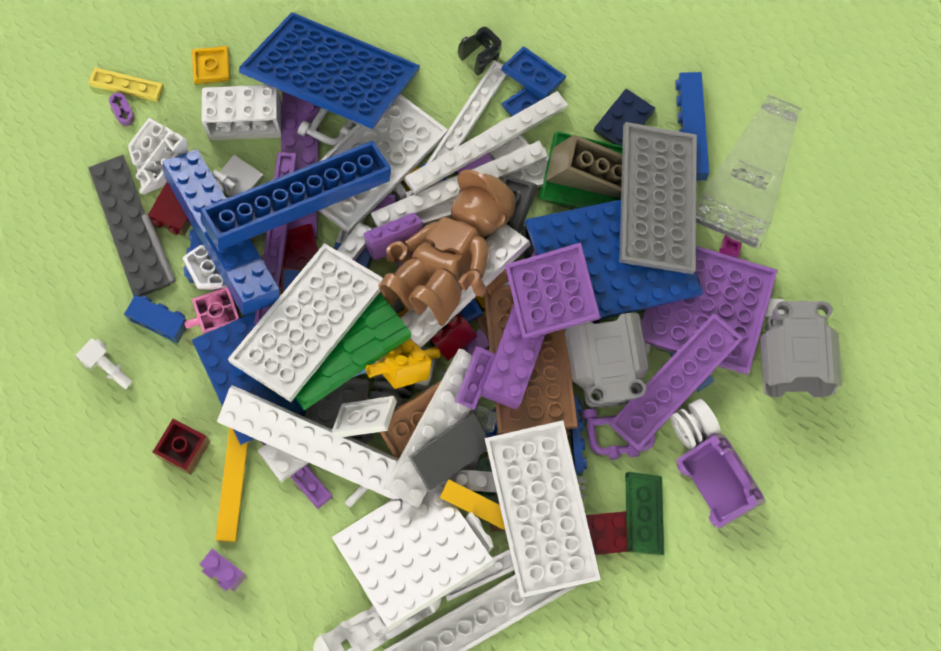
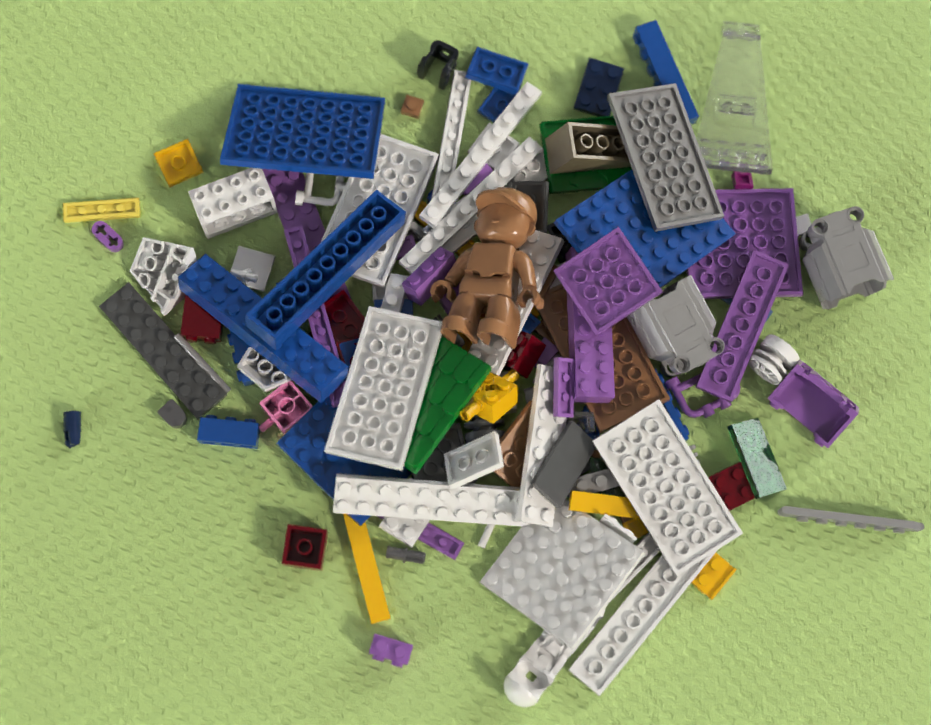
camera: 30 degrees left, 5 degrees up
(20, 266) = (72, 428): none -> dark blue hinge
(94, 354) = (185, 489): white brick -> none
(114, 285) = (173, 414): none -> flat silver piece
(272, 487) = (405, 555): none -> flat silver axle
(442, 81) = (412, 106): none -> medium nougat plate
(499, 540) = (636, 526): none -> yellow tile
(559, 613) = (713, 576): none -> yellow plate
(724, 611) = (842, 519): none -> light grey hinge

